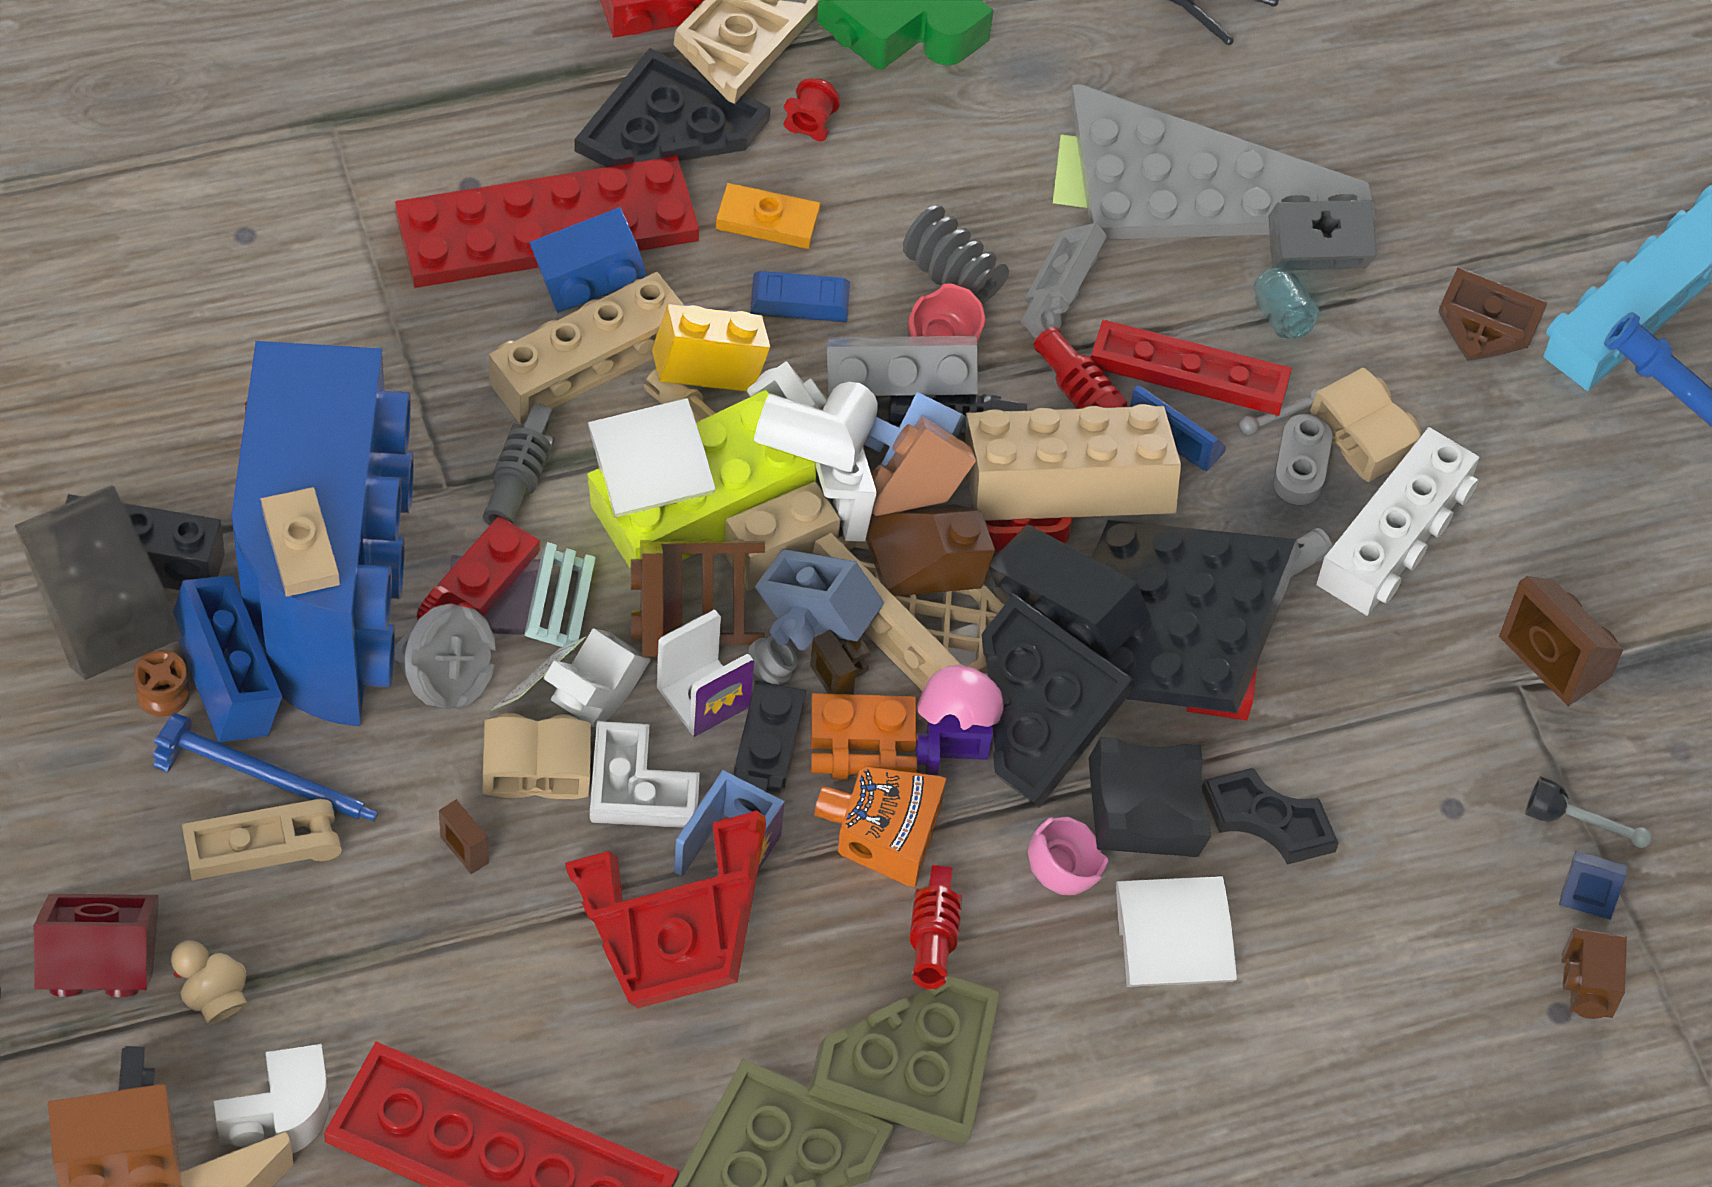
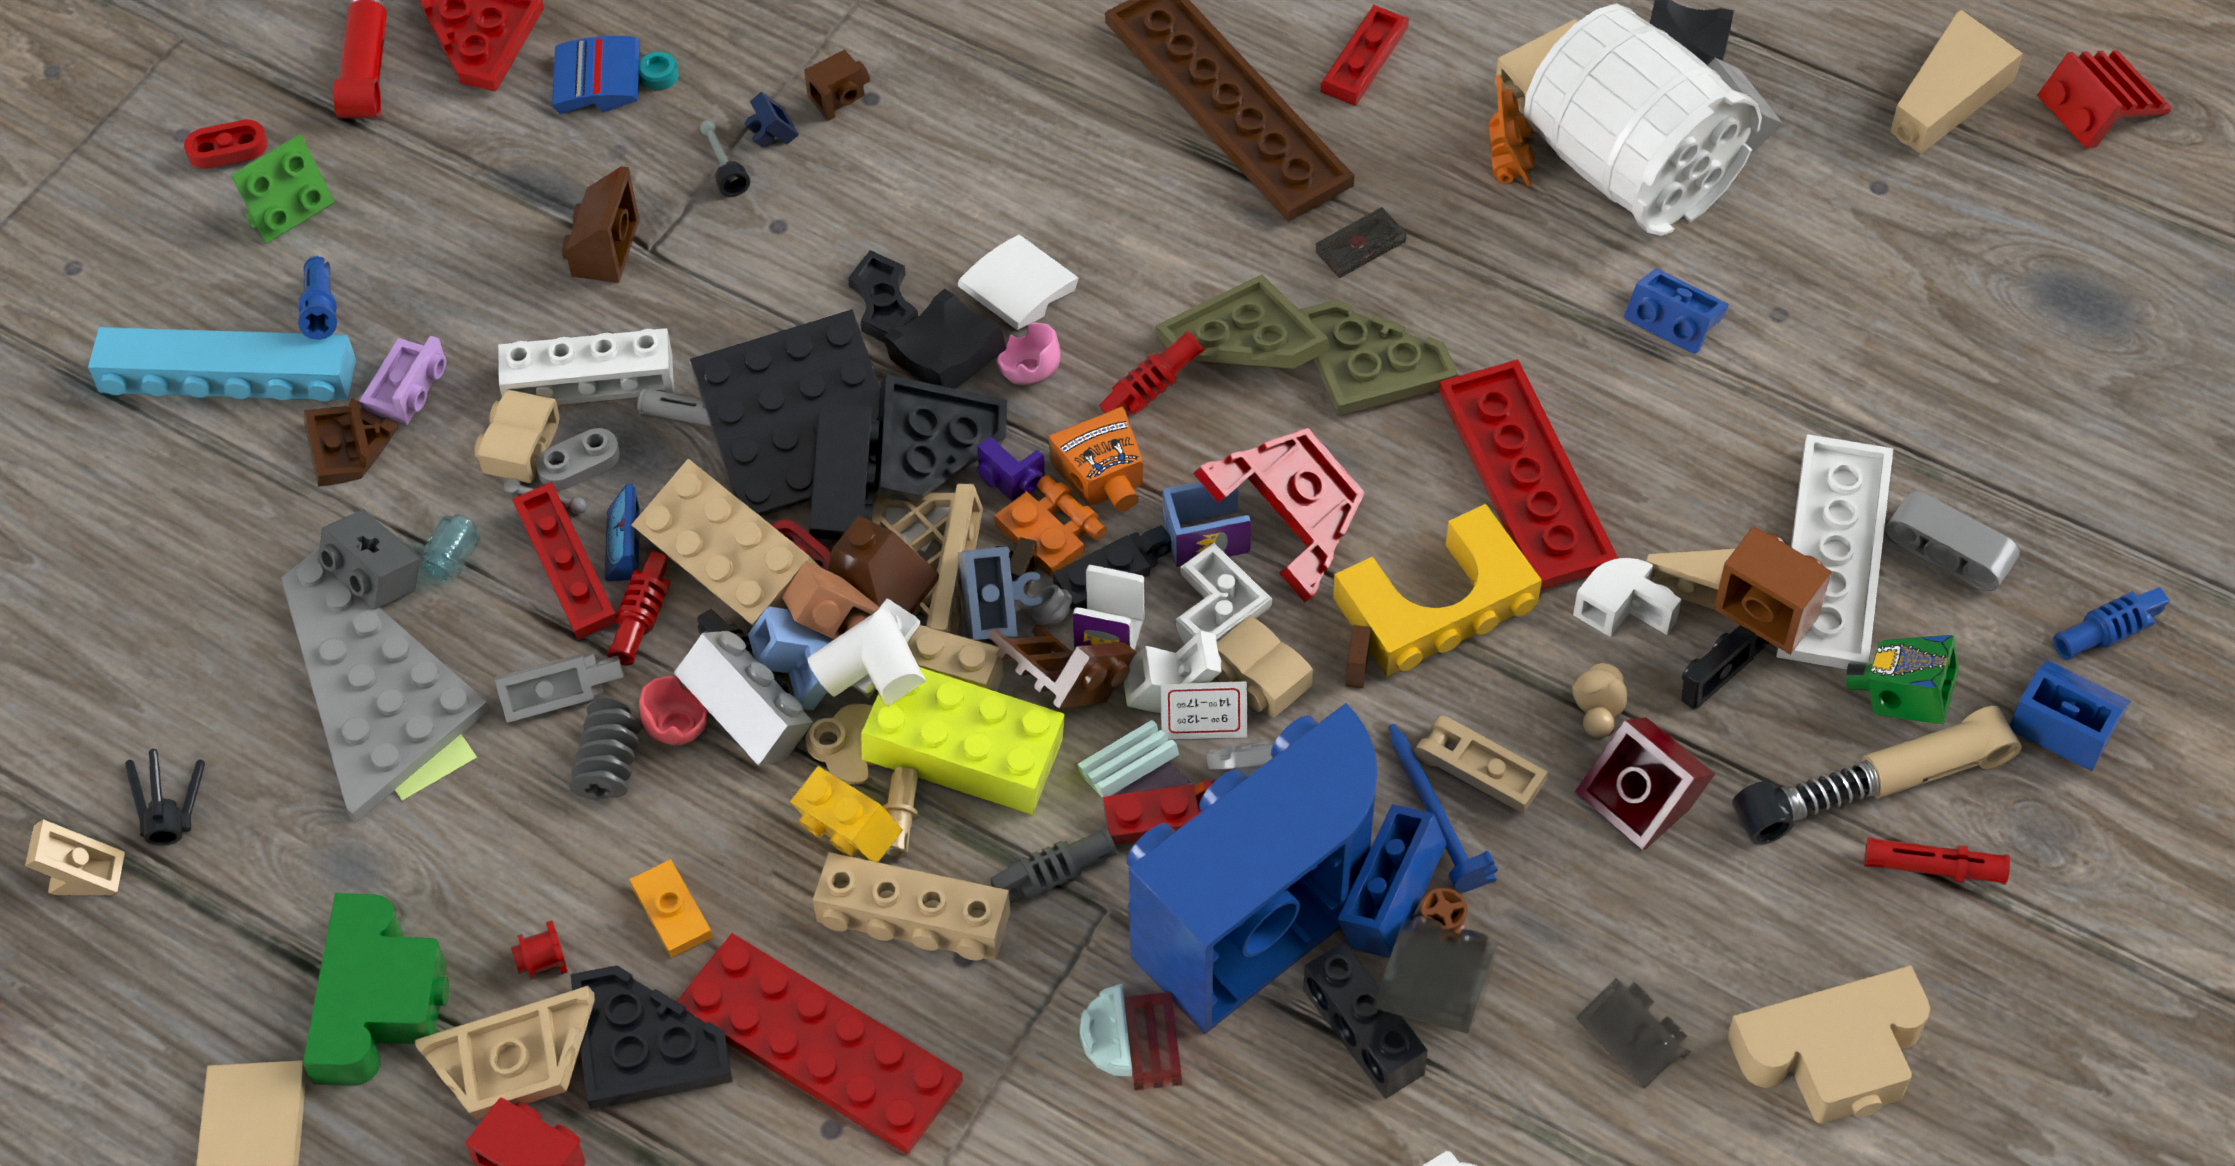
camera: 125 degrees left, 0 degrees up
(300, 541) = (1333, 766): tan plate -> none
(449, 892) = (1408, 632): none -> yellow arch
(588, 259) = (841, 957): blue brick -> none
(651, 457) = (995, 737): white slope -> none
(787, 384) = (834, 742): white bracket -> none
(800, 296) = (725, 835): blue tile -> none
(961, 693) = (991, 458): bright pink hair -> none
(1515, 389) = (404, 380): none -> lavender bracket

